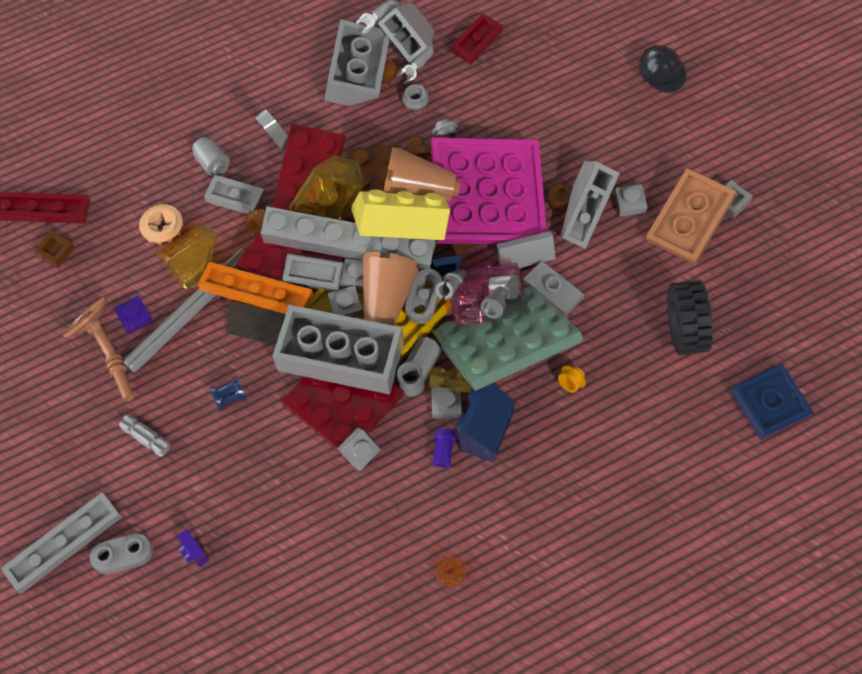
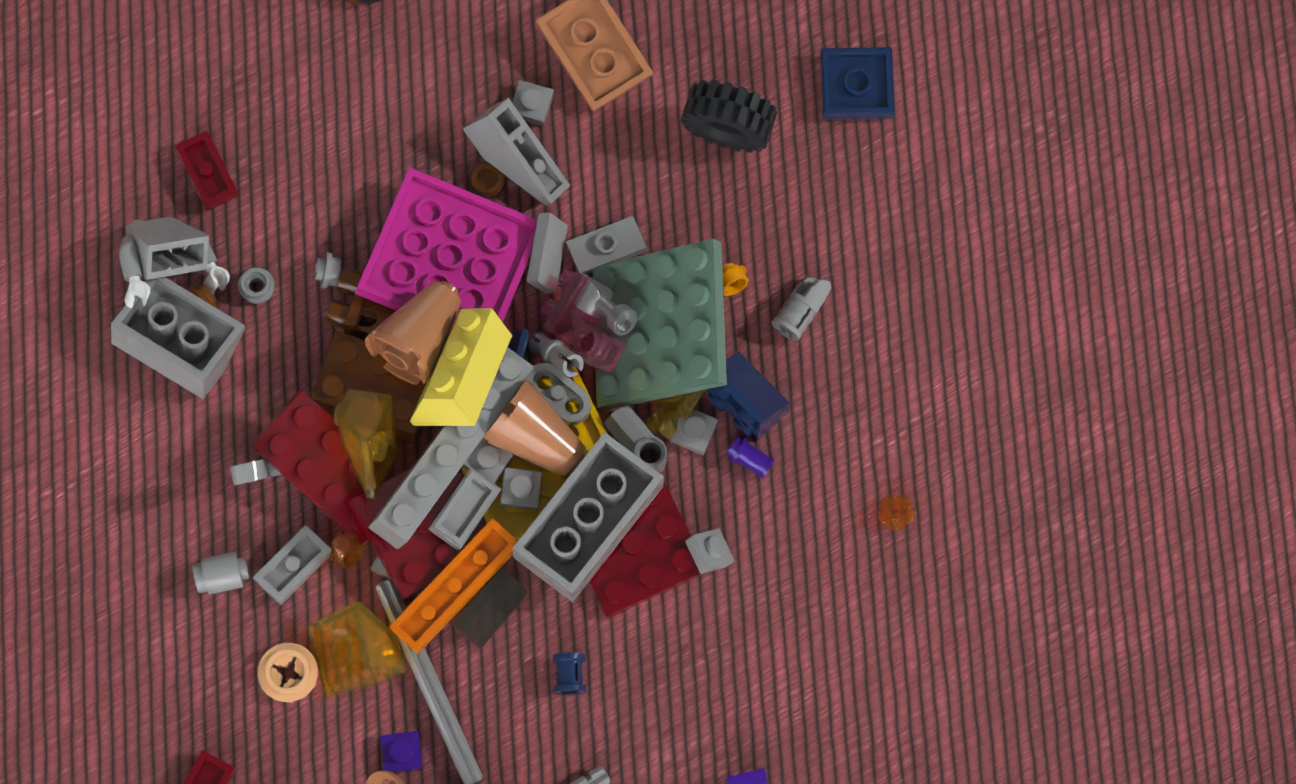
camera: 75 degrees left, 10 degrees up
(576, 434) = (801, 307): none -> light grey hinge

